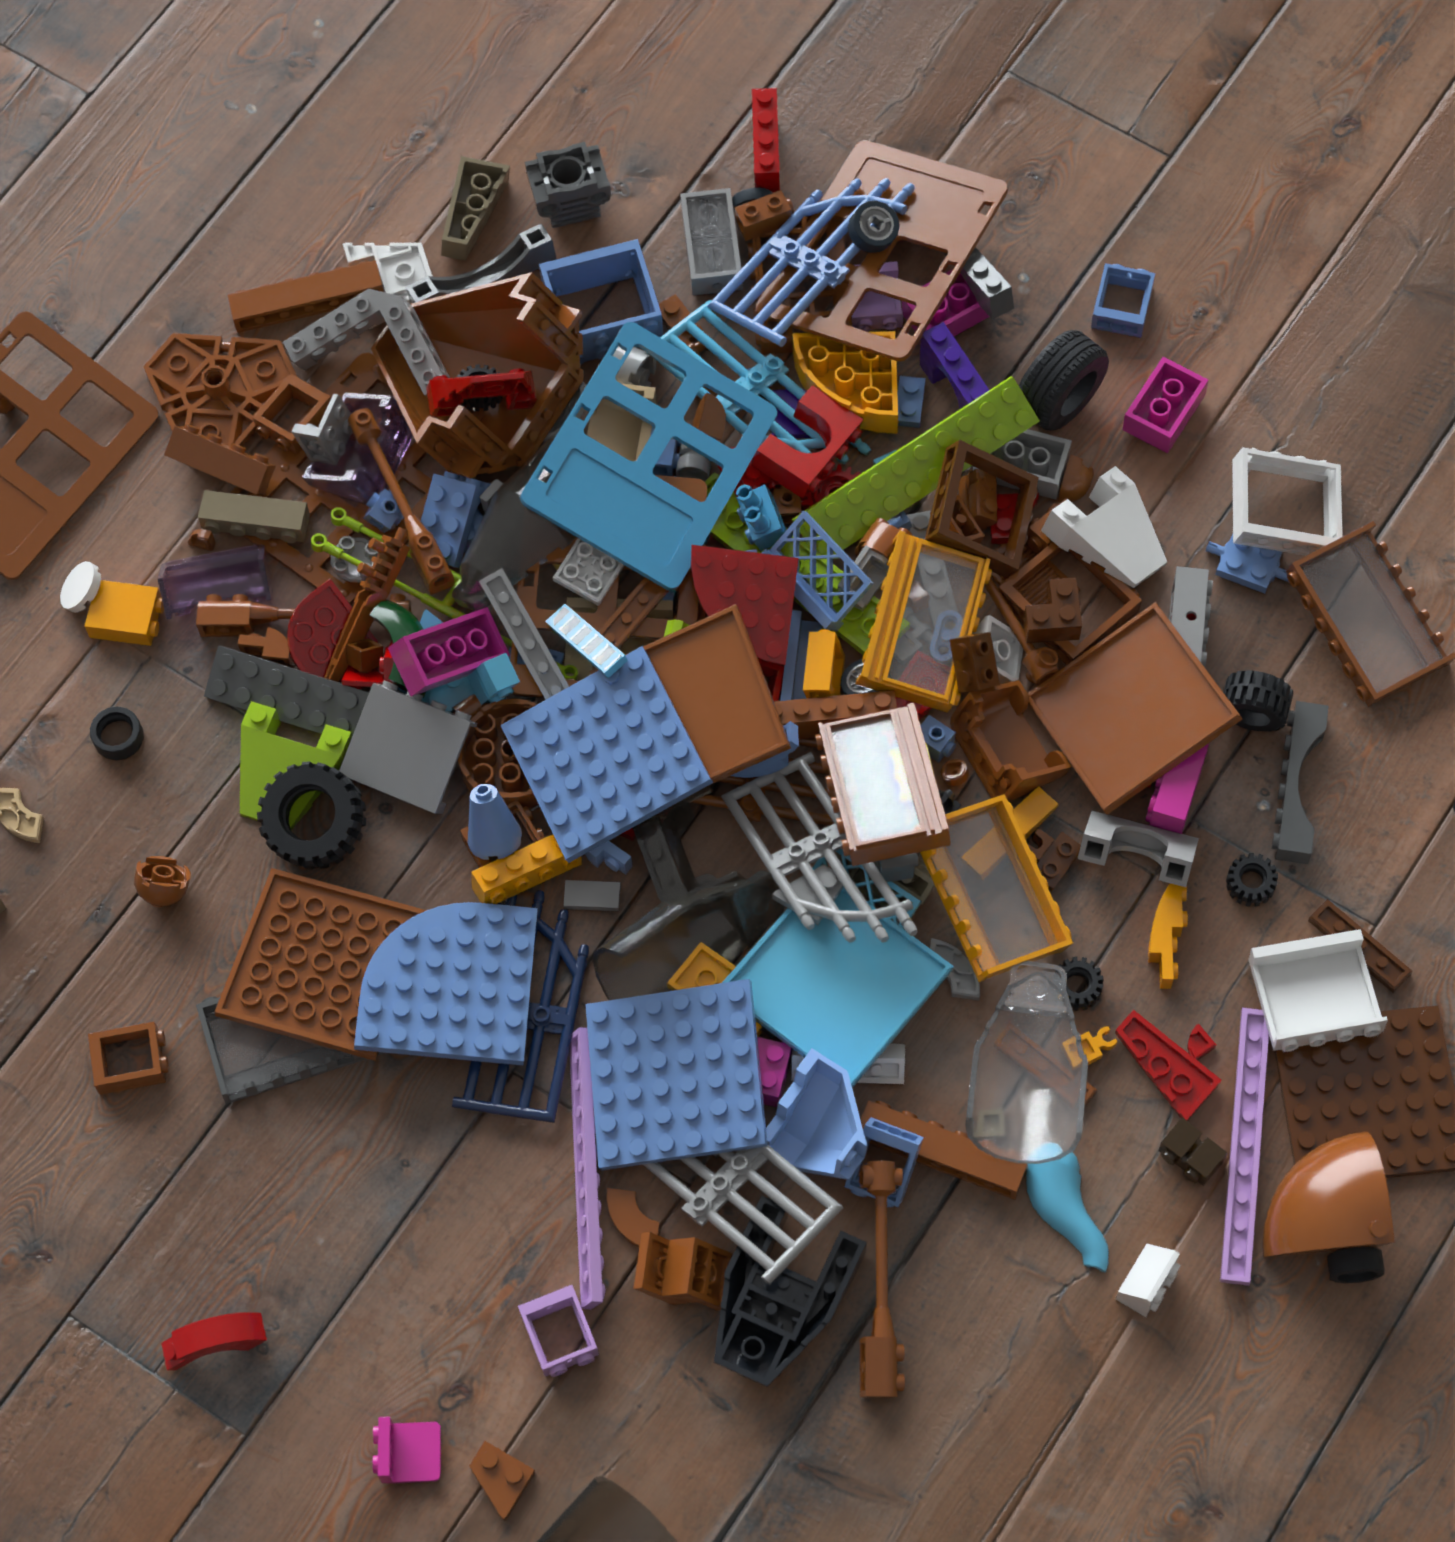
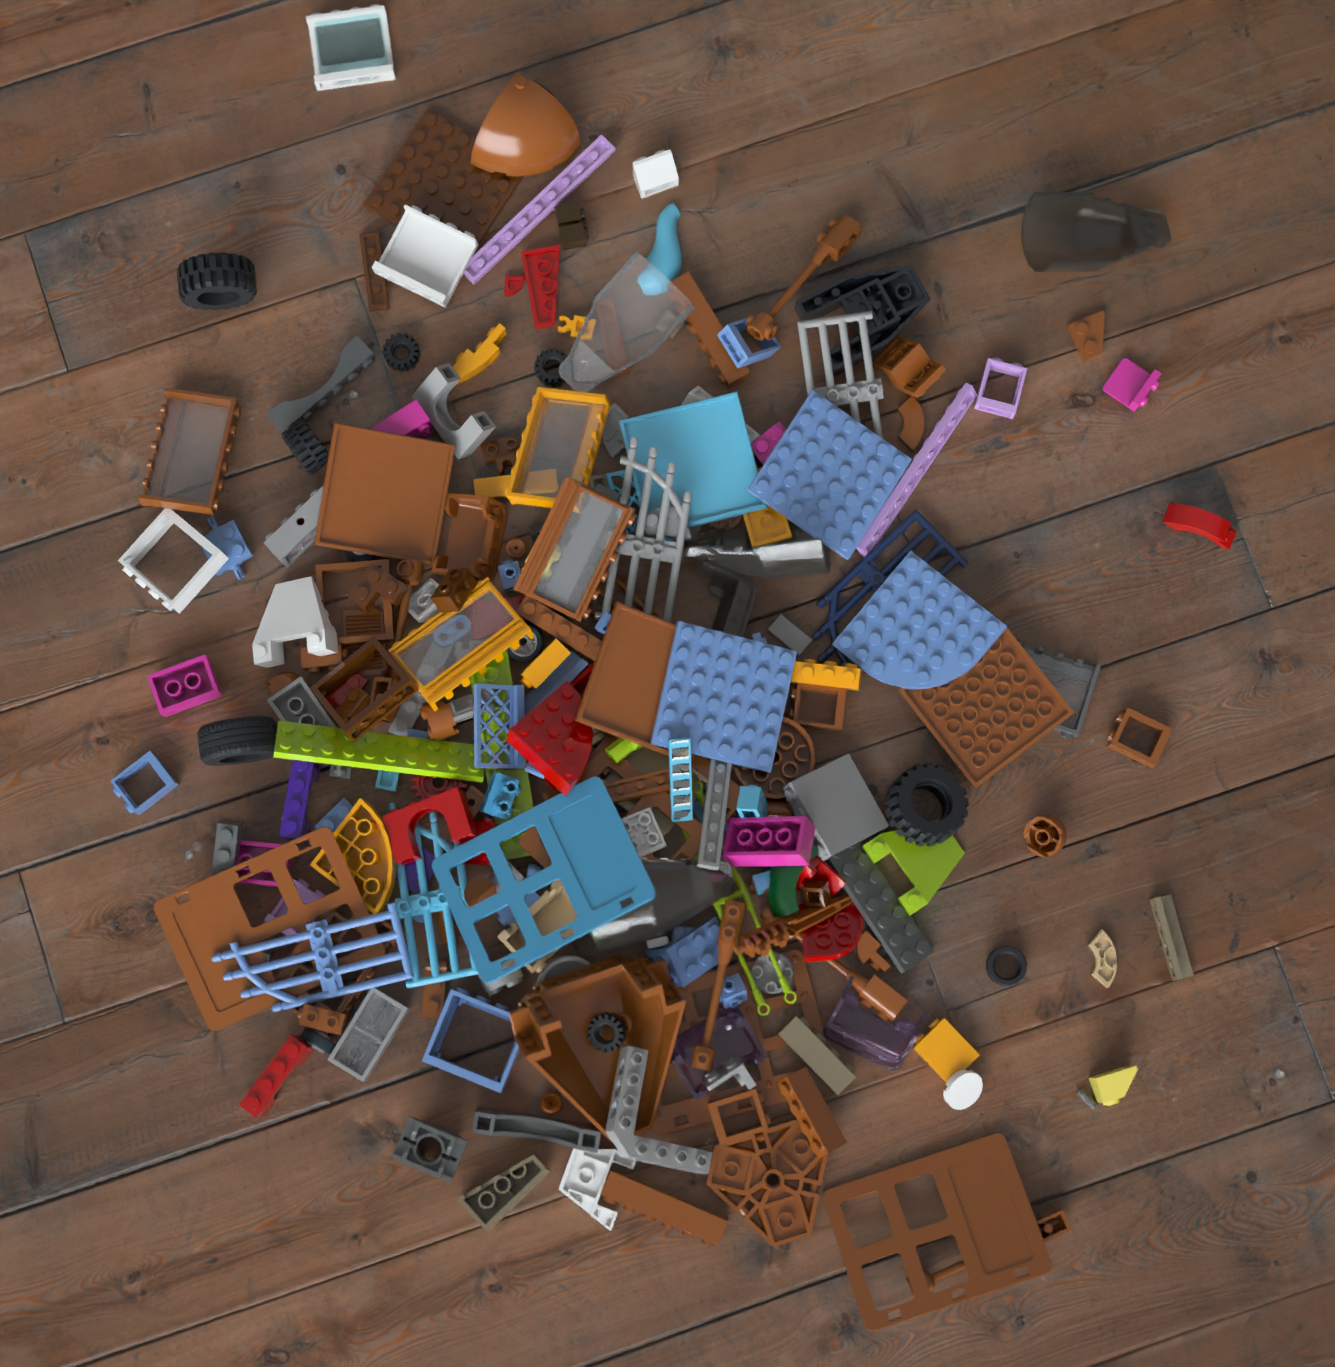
camera: 145 degrees left, 15 degrees up
(202, 539) = (859, 1068): dark orange tile -> none
(447, 393) = (614, 1009): red wedge -> none
(491, 824) = (826, 703): medium blue cone -> none
(819, 1121) = (769, 384): light blue panel -> none
(871, 238) = (270, 948): wheel -> none

